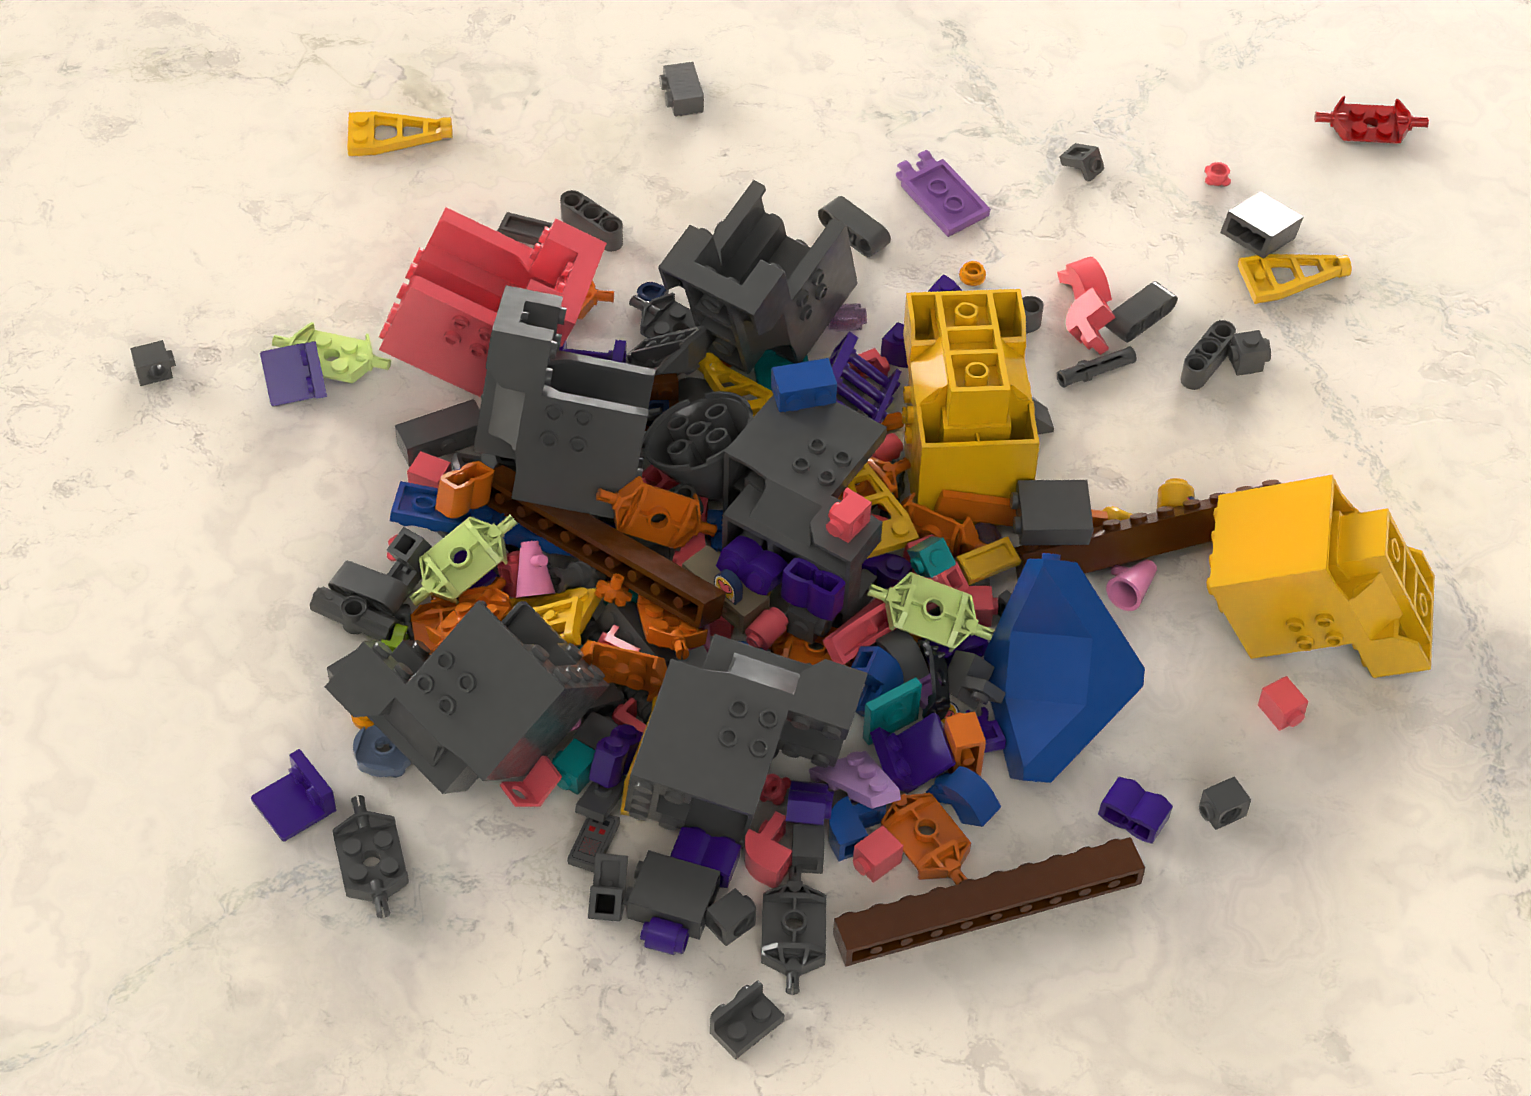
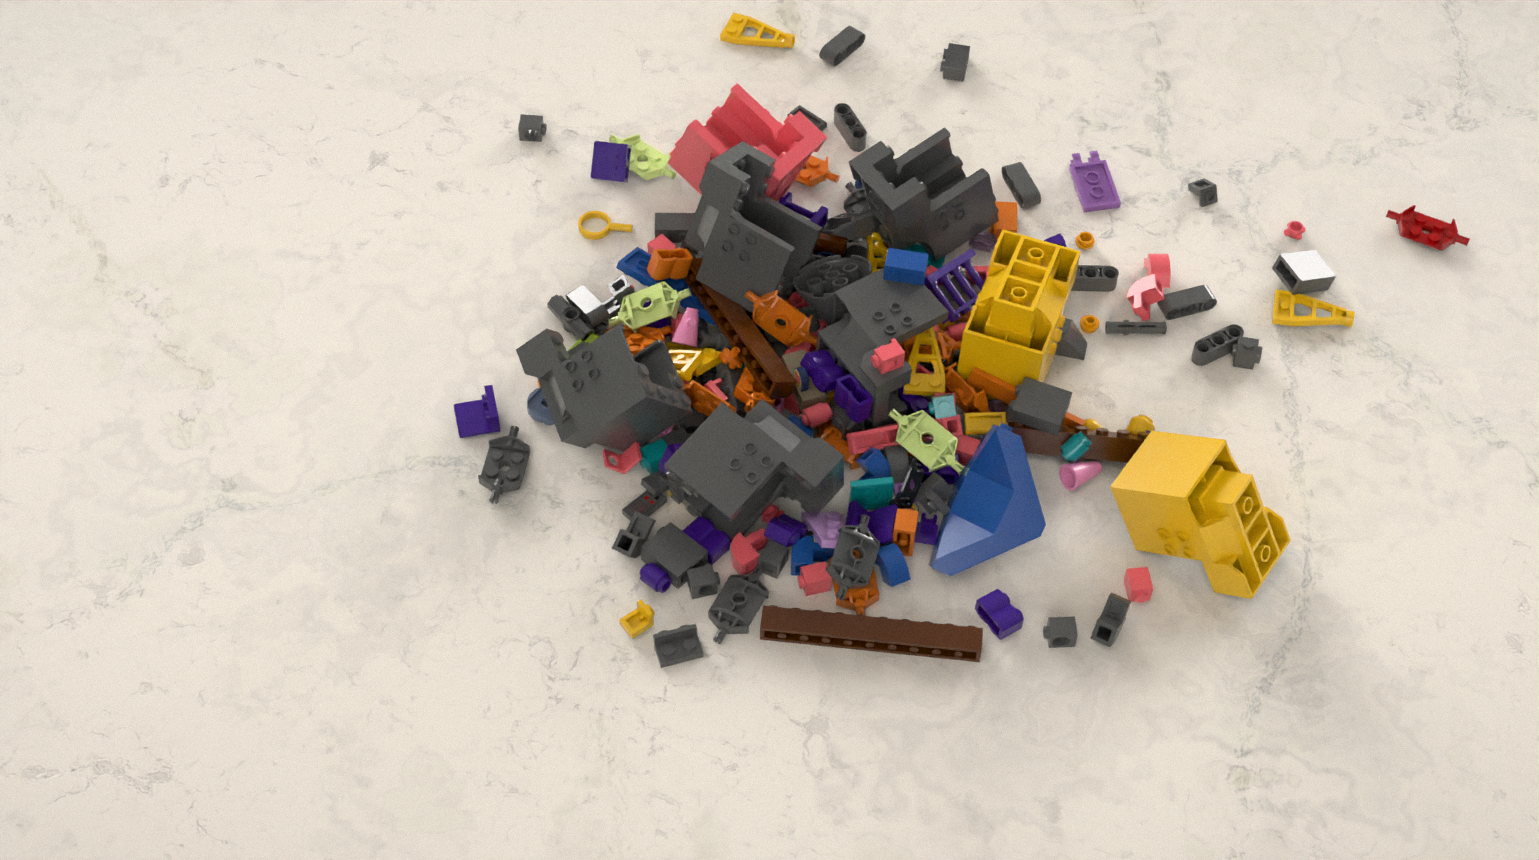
camera: 25 degrees right, 0 degrees up
(338, 464) = (610, 227): none -> yellow piece
(521, 113) = (842, 46): none -> dark grey beam
(674, 1004) = (638, 620): none -> yellow bracket
(870, 289) = (1007, 218): none -> orange brick
(922, 825) = (844, 567): none -> dark grey plate
(1039, 381) = (1089, 324): none -> light orange plate
(1118, 551) = (1075, 447): none -> teal brick
(1277, 763) = (1111, 620): none -> dark grey brick

